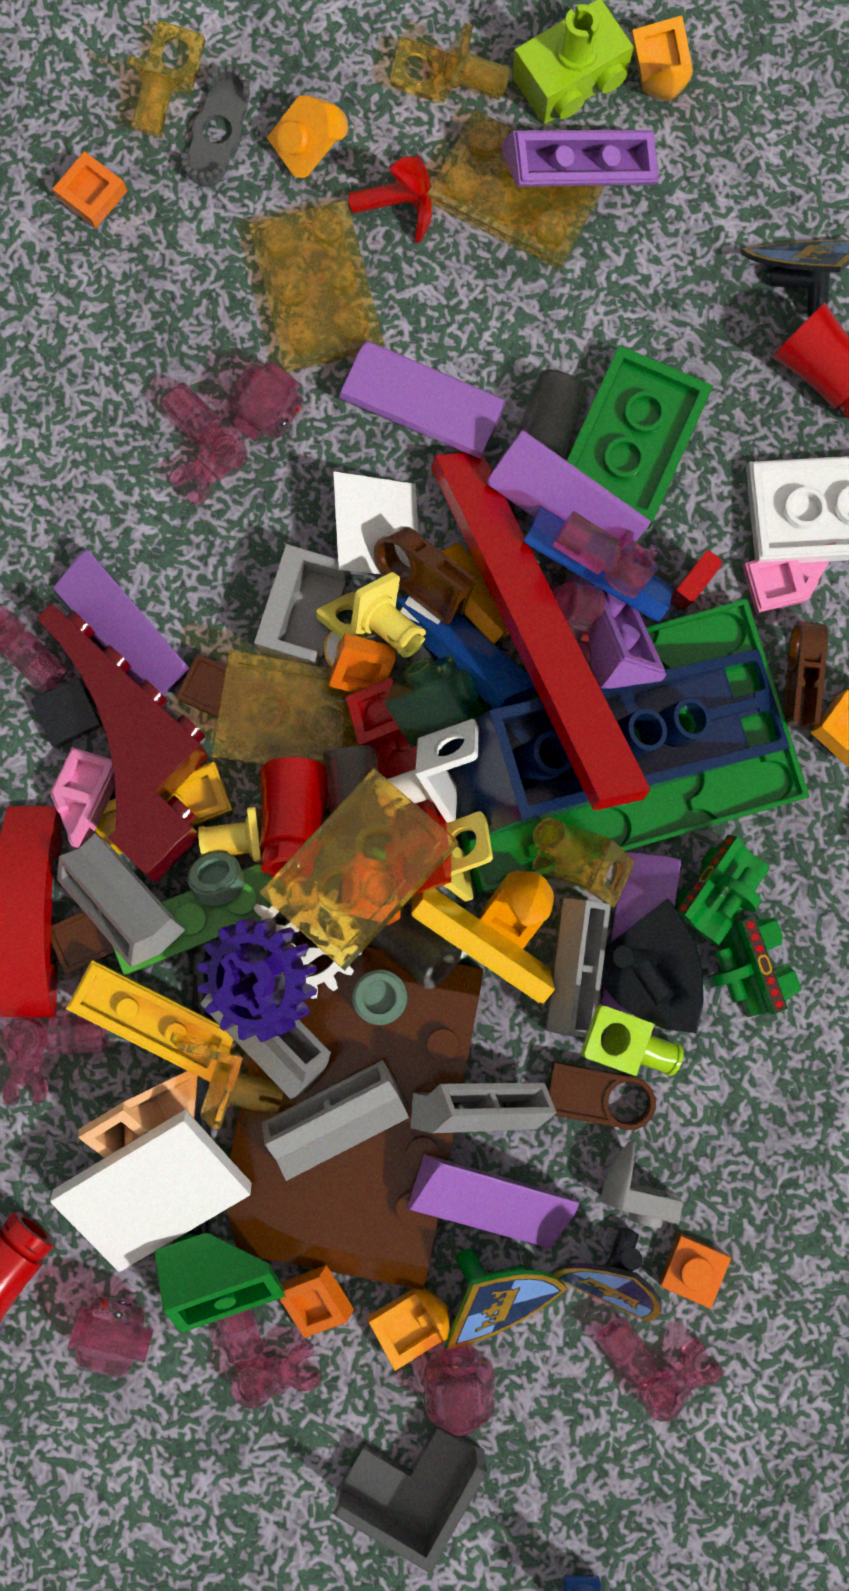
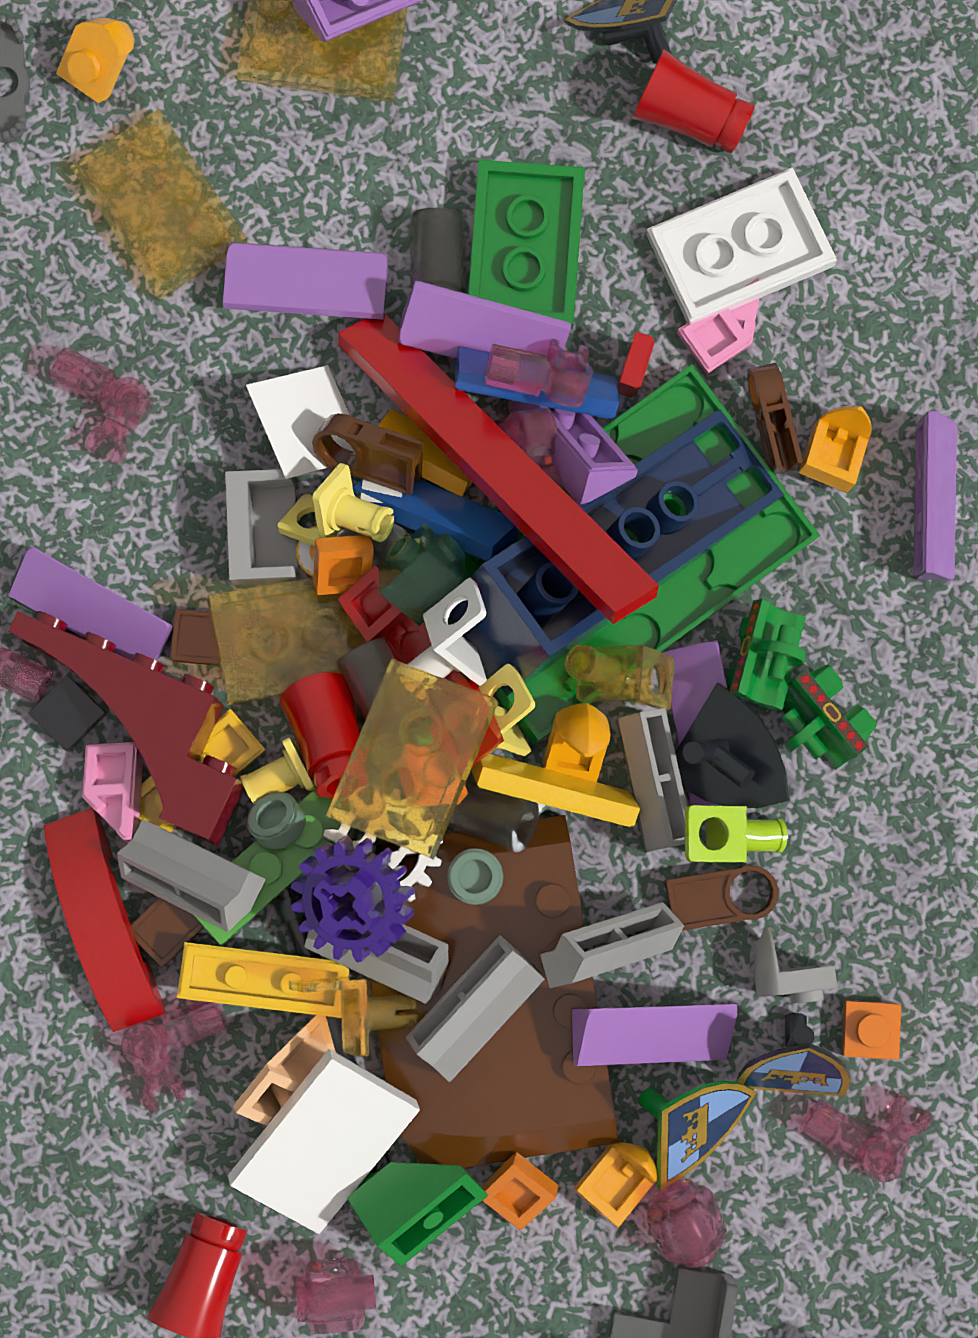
camera: 20 degrees left, 0 degrees up
(258, 1377) = (490, 1286): clear pink bar -> none
(264, 400) = (151, 337): clear pink head -> none
(411, 187) = (216, 73): red plant -> none

